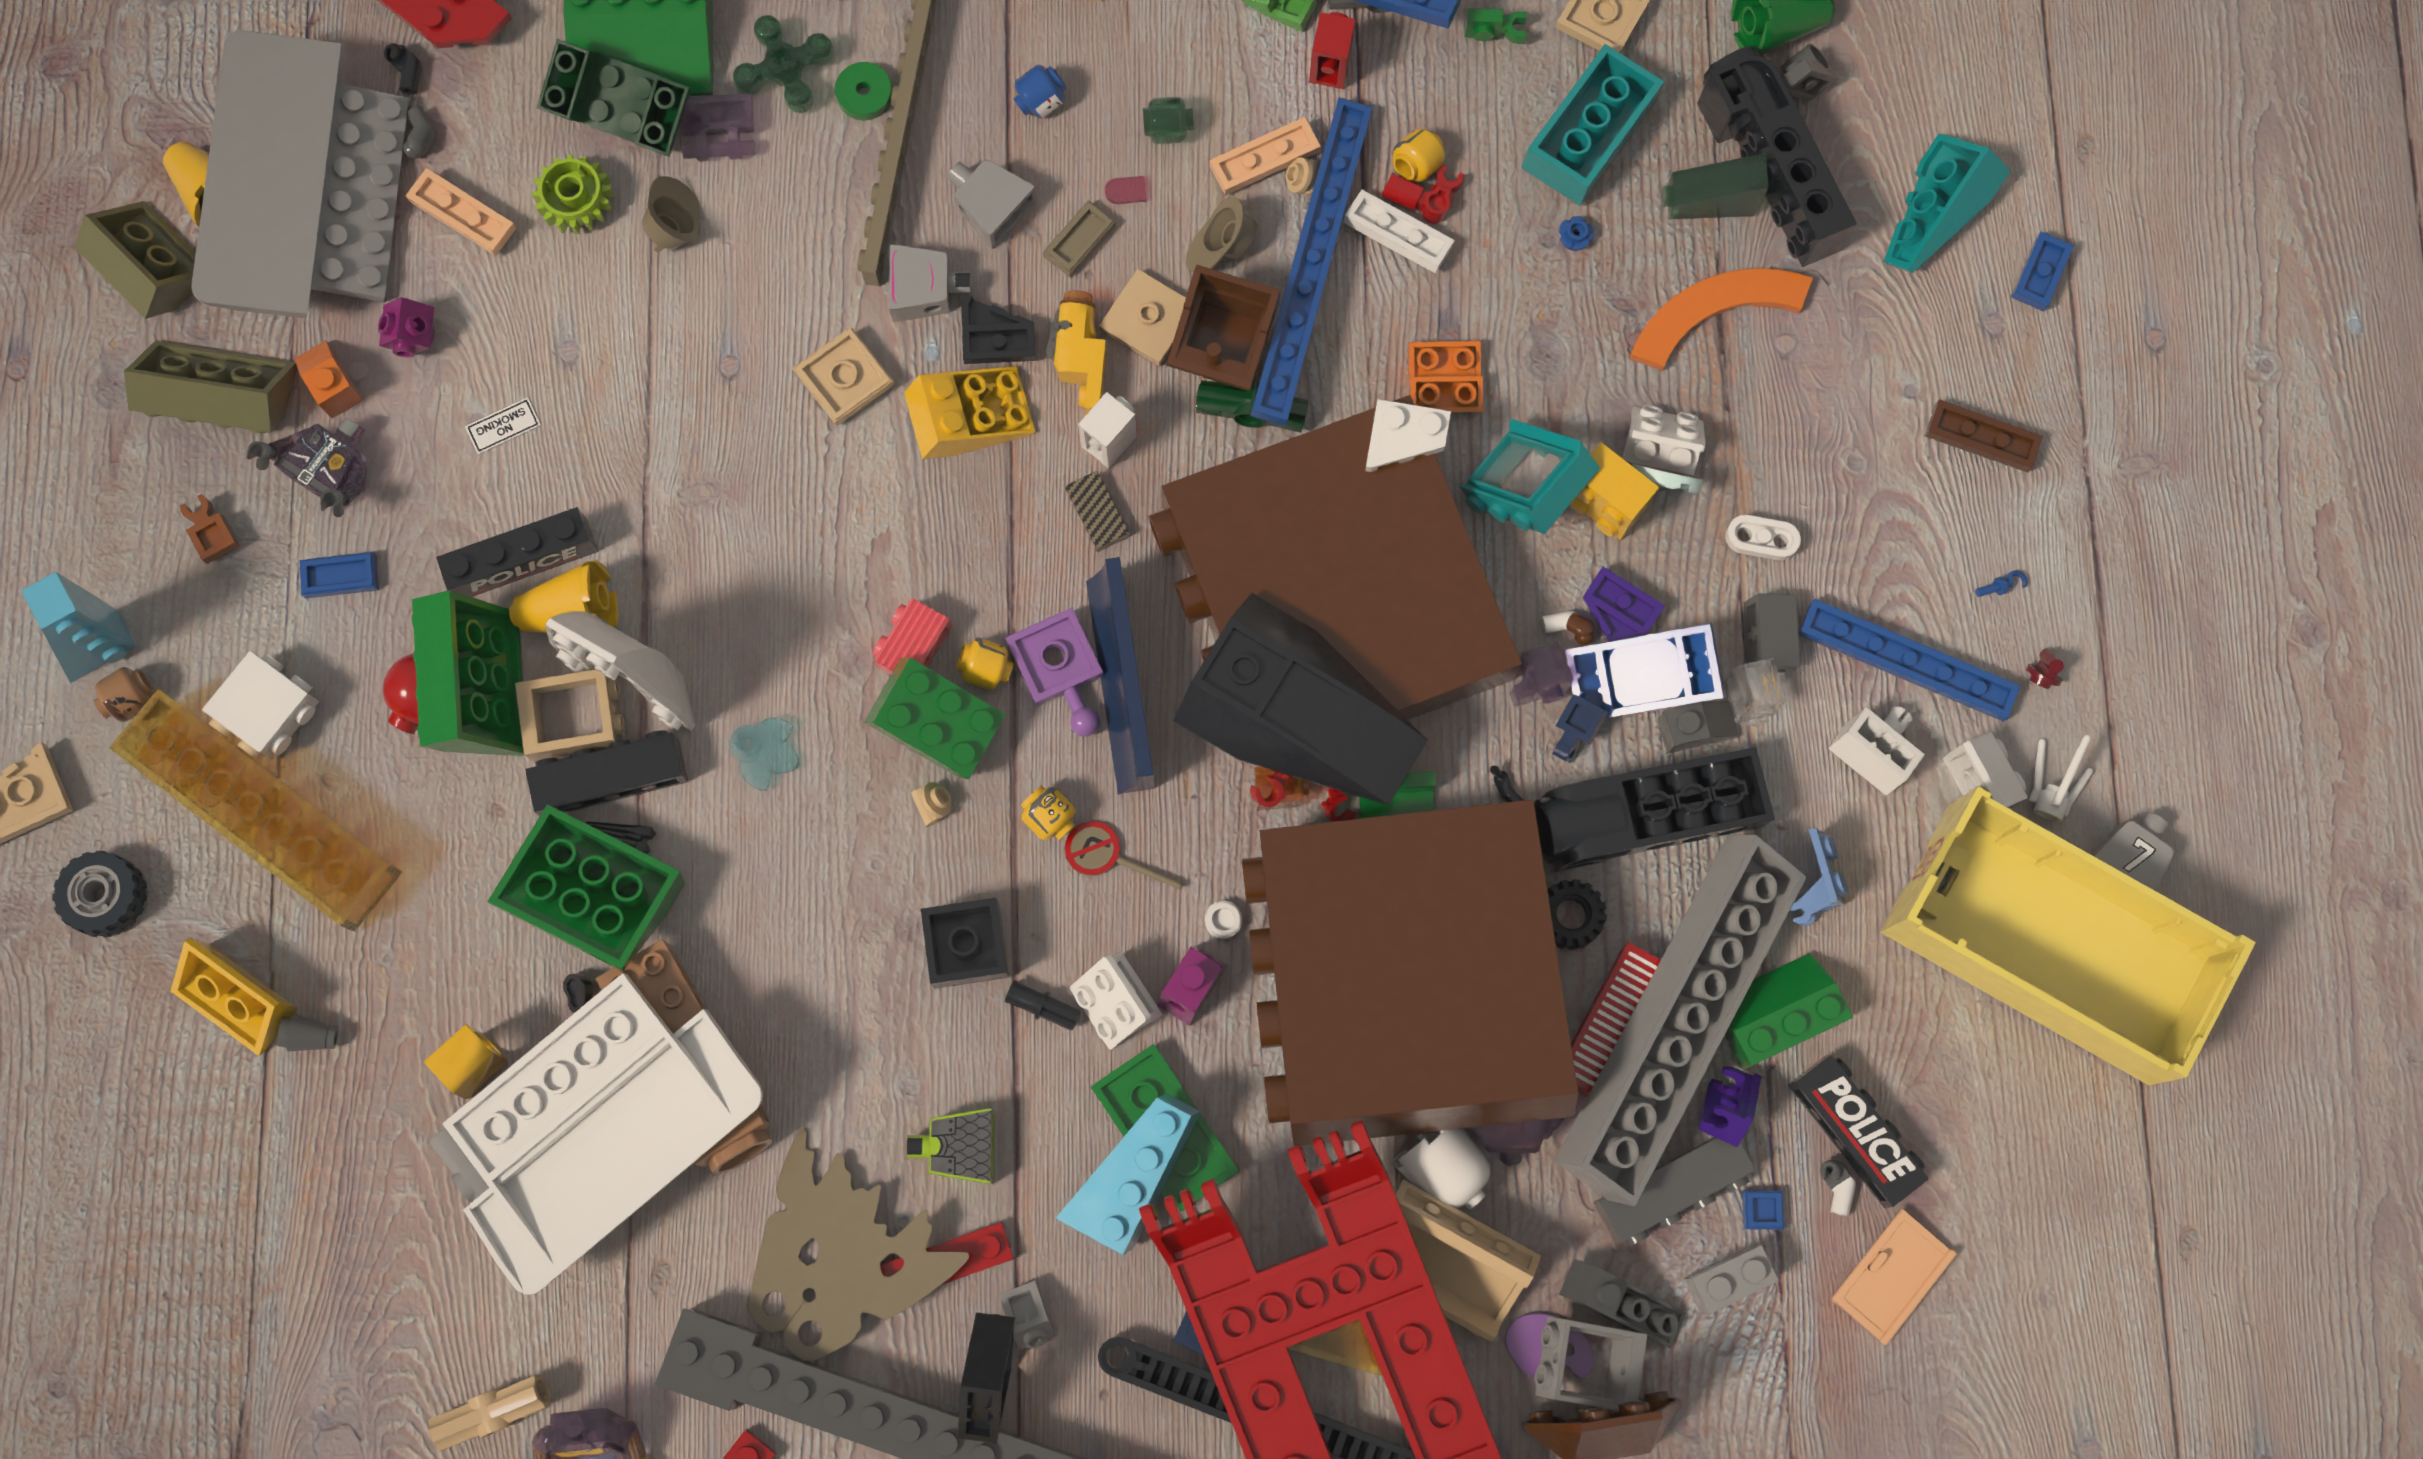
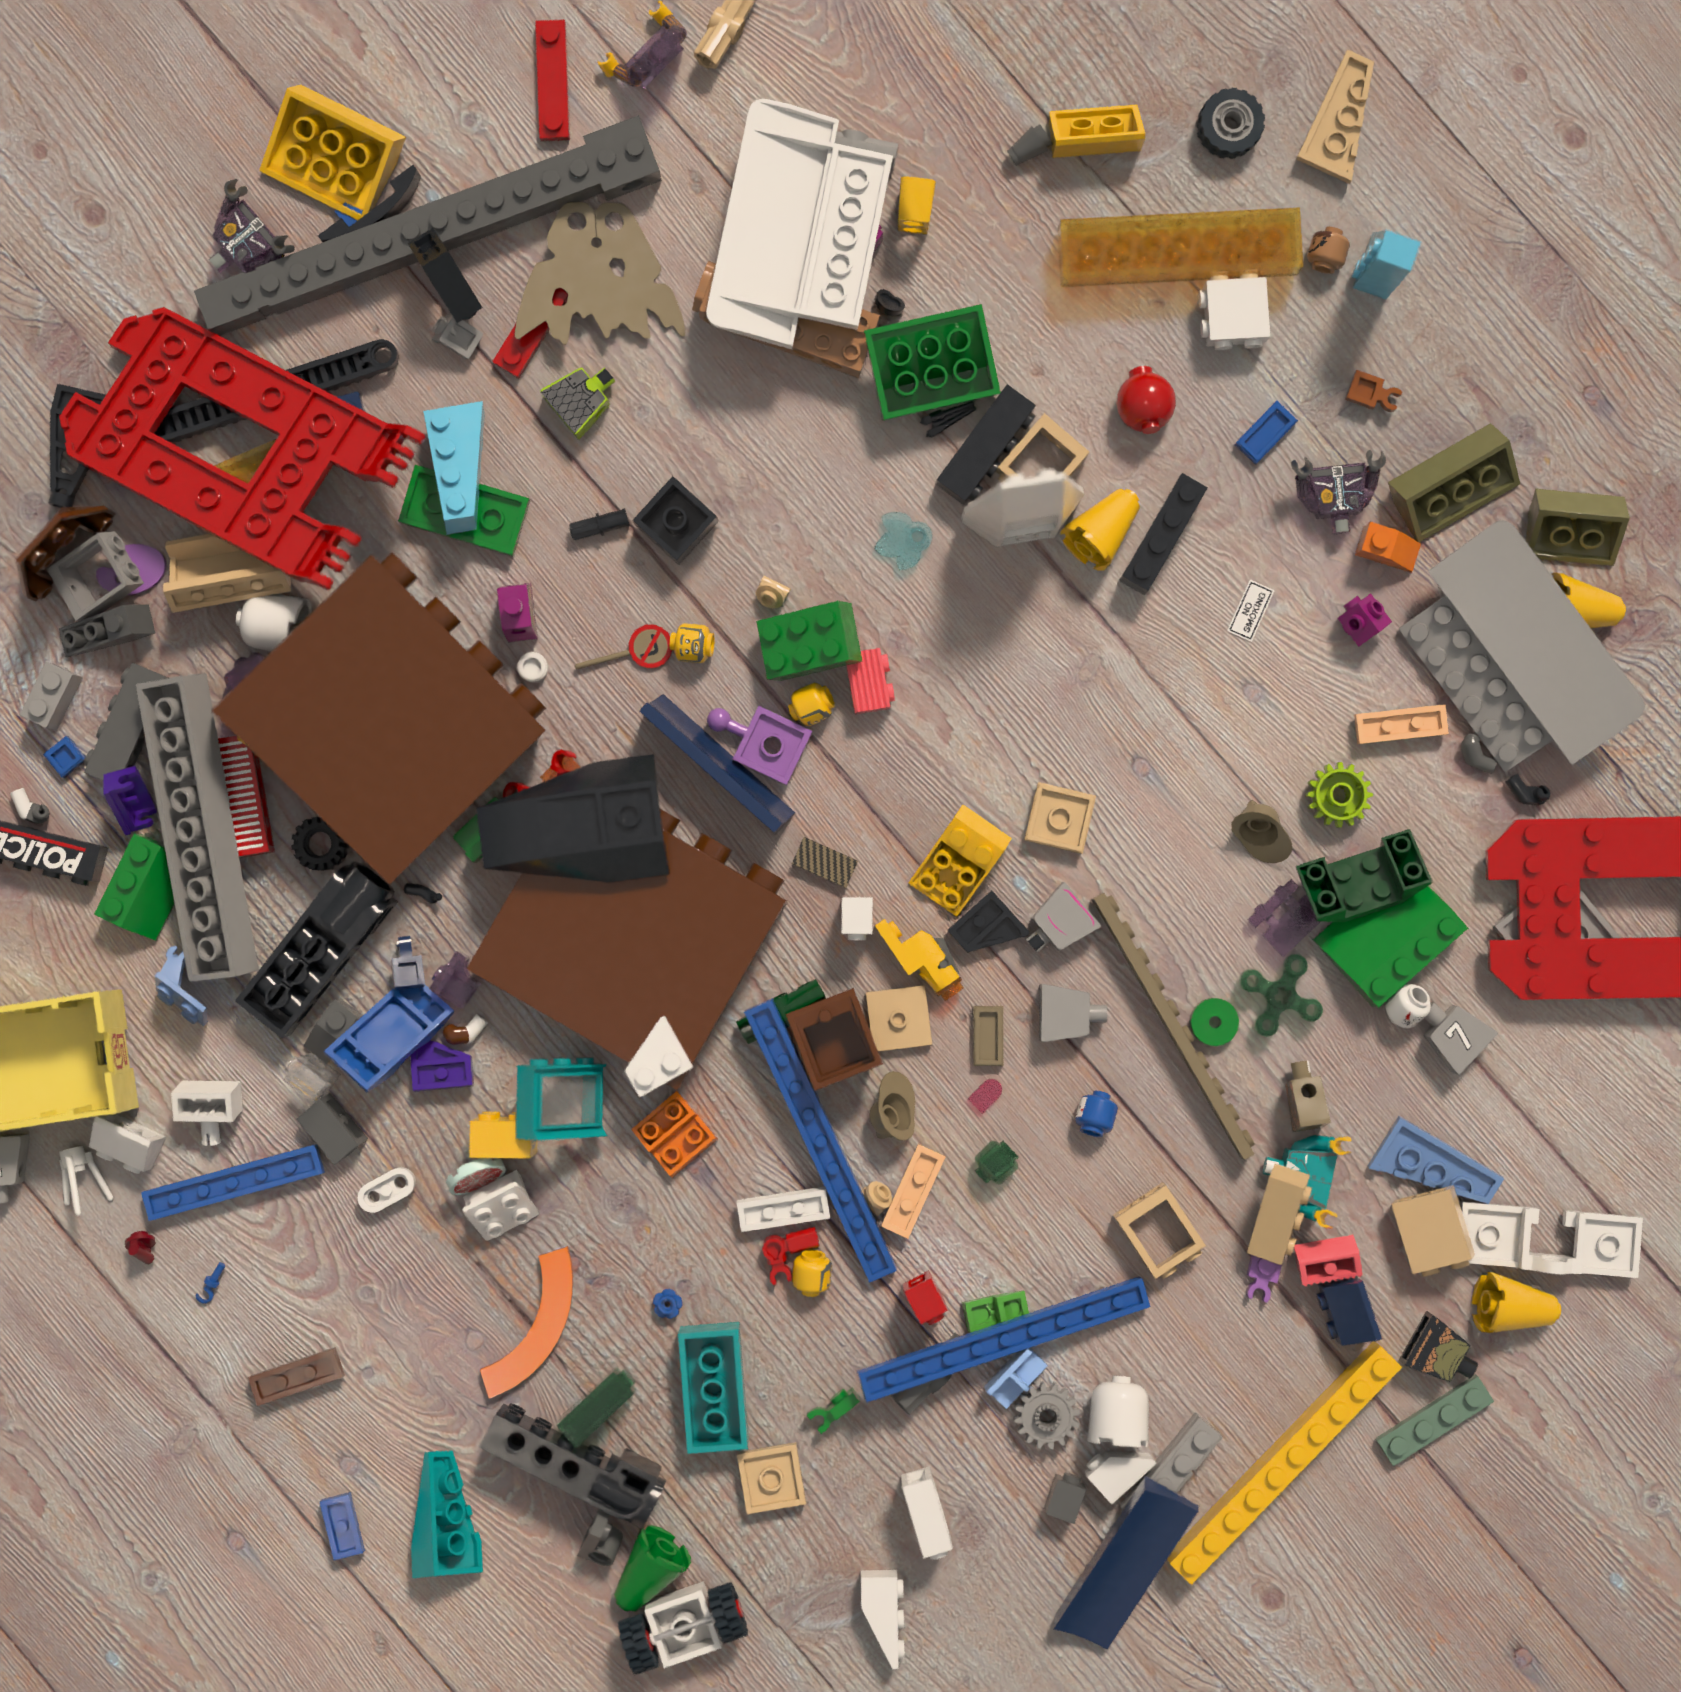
camera: 145 degrees right, 10 degrees up
(466, 675) = (1119, 429): green slope -> none
(1115, 999) = (556, 563): white bracket -> none

